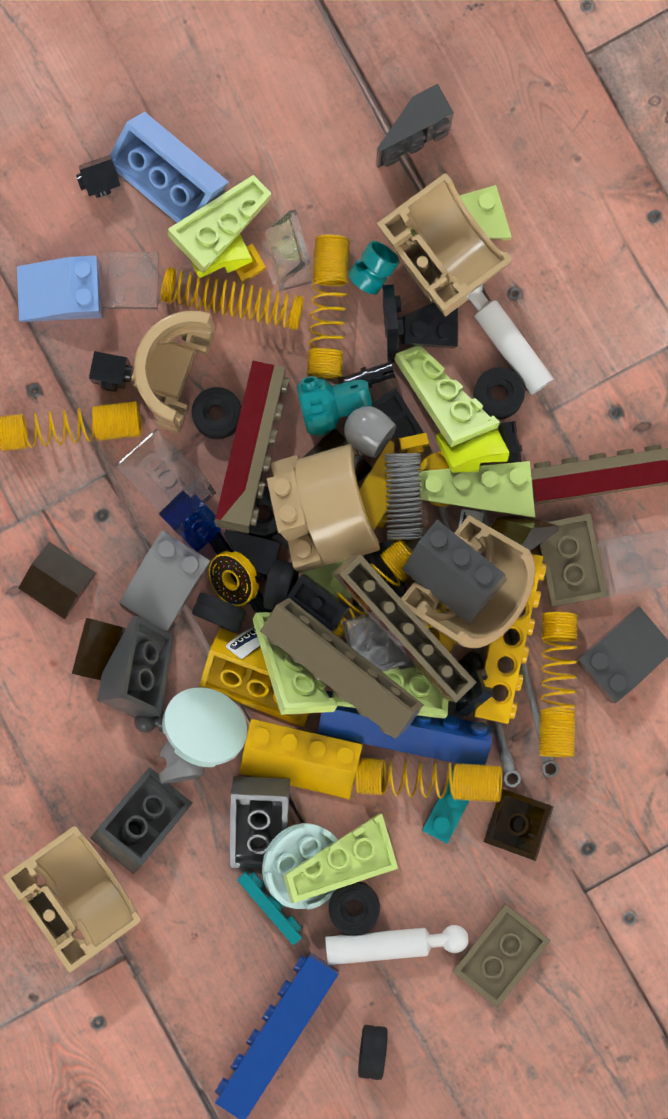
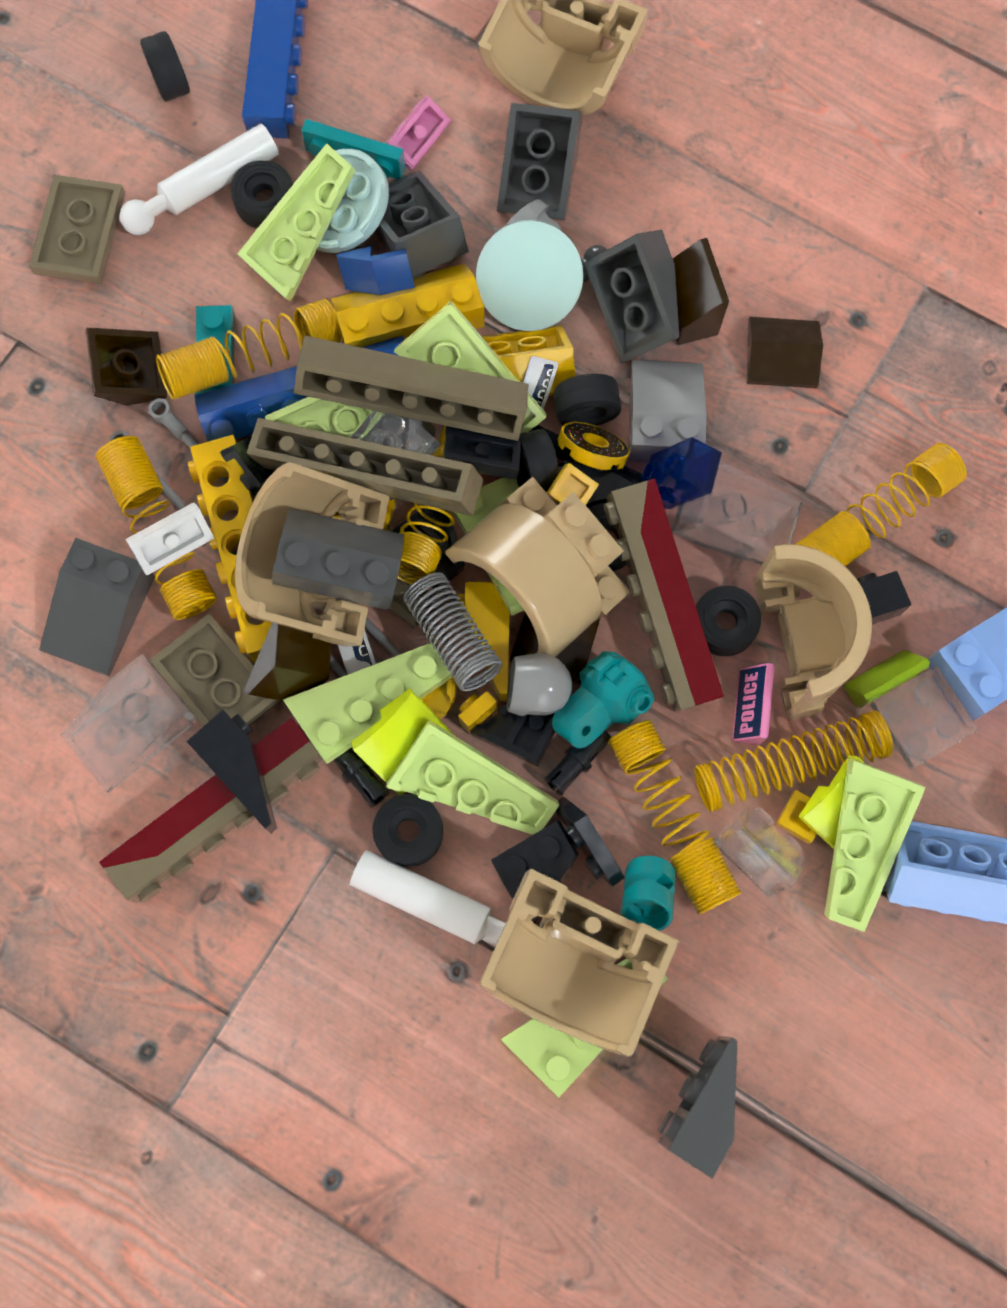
camera: 150 degrees right, 10 degrees down
(134, 318) = (885, 677): none -> lime slope
(215, 900) = (419, 131): none -> bright pink slope
(233, 350) = (753, 704): none -> slope
(270, 548) = (570, 481): none -> yellow plate
(310, 787) = (375, 273): none -> blue slope
(555, 658) = (170, 538): none -> white plate
(587, 491) = (235, 760): none -> black slope

